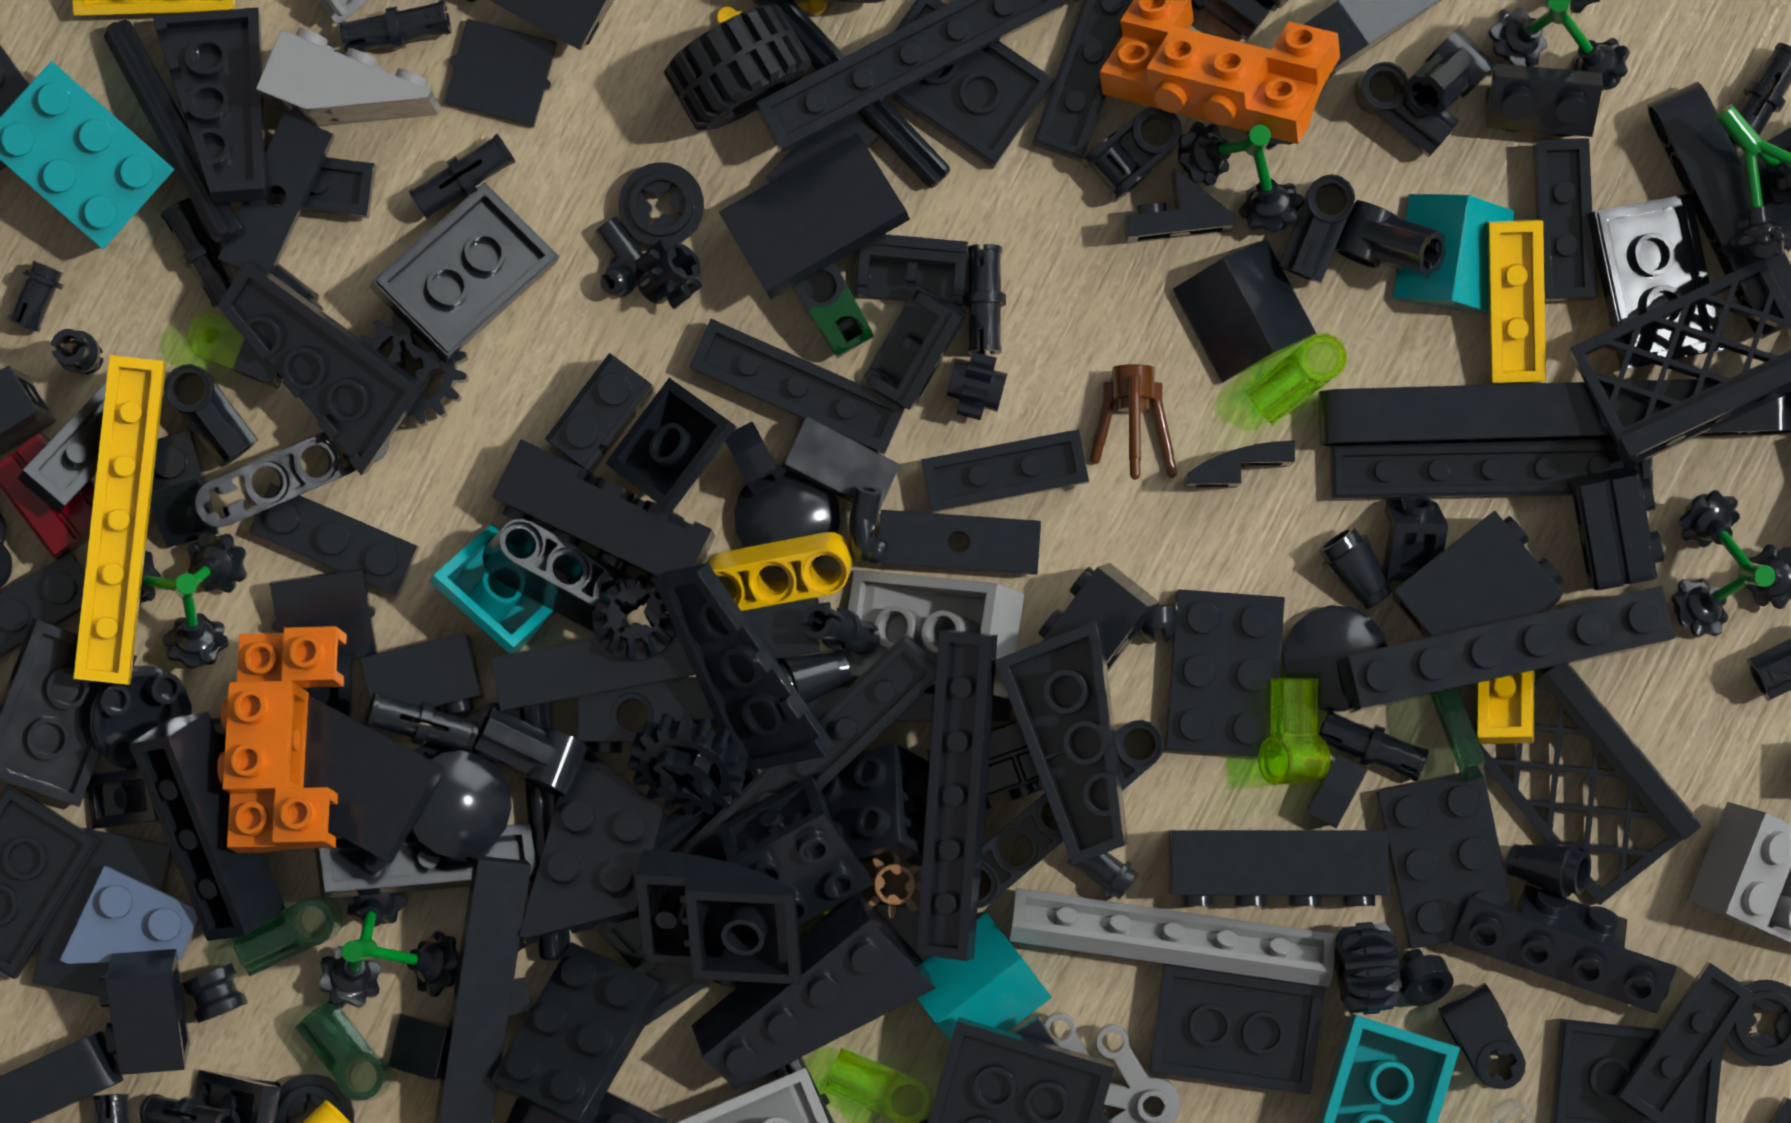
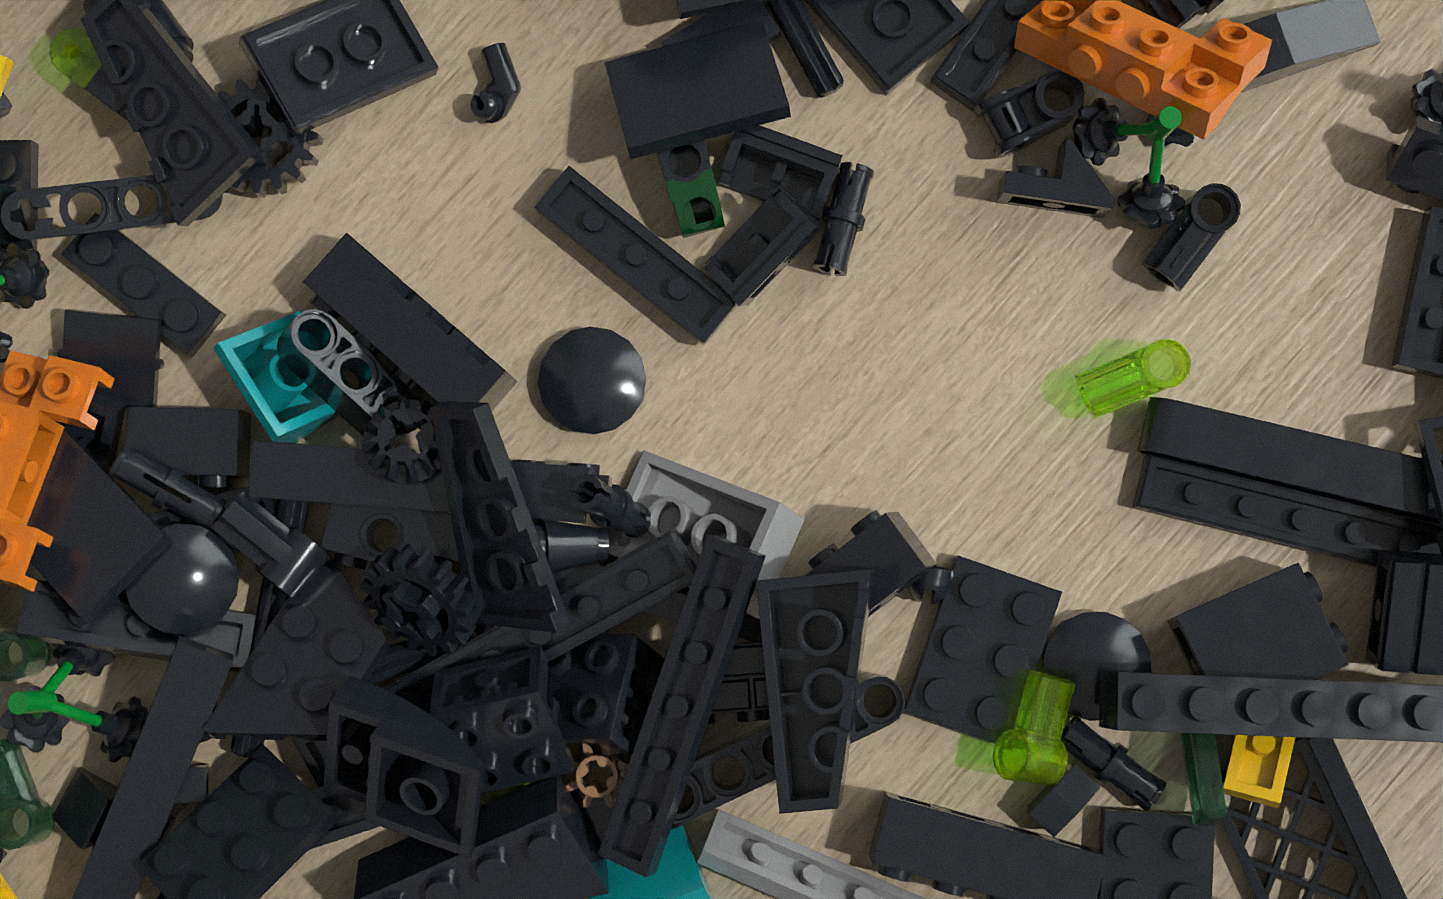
camera: 20 degrees right, 0 degrees up
(211, 418) = (53, 131): black piece -> none
(600, 413) = (433, 230): black brick -> none
(657, 180) = (555, 19): black gear -> none
(668, 273) = (539, 110): black gear -> none
(670, 445) = (493, 278): black slope -> none
(753, 459) = (572, 314): black piece -> none
(795, 558) = (586, 423): yellow beam -> none
(837, 461) = (657, 343): black tile -> none
(862, 524) = (662, 406): black arm -> none
(976, 385) = (812, 301): black gear -> none
(994, 543) = (787, 462): black tile -> none
(1005, 471) = (818, 392): black plate -> none
(1108, 873) = (818, 826): black pin -> none
(1133, 390) = (966, 347): reddish brown plant -> none
(1225, 469) = (1039, 448): black slope -> none
(1243, 310) = (1095, 297): black slope -> none
(1356, 567) = (1141, 580): black cone -> none
(1380, 237) = (1252, 260): black piece -> none
(1414, 536) = (1208, 567): black bracket -> none
(1421, 131) = (1311, 146): black piece -> none
(1448, 73) = (1362, 117): black piece -> none
(1463, 274) = (1318, 295): teal slope -> none
(1516, 301) = (1372, 359): yellow plate -> none

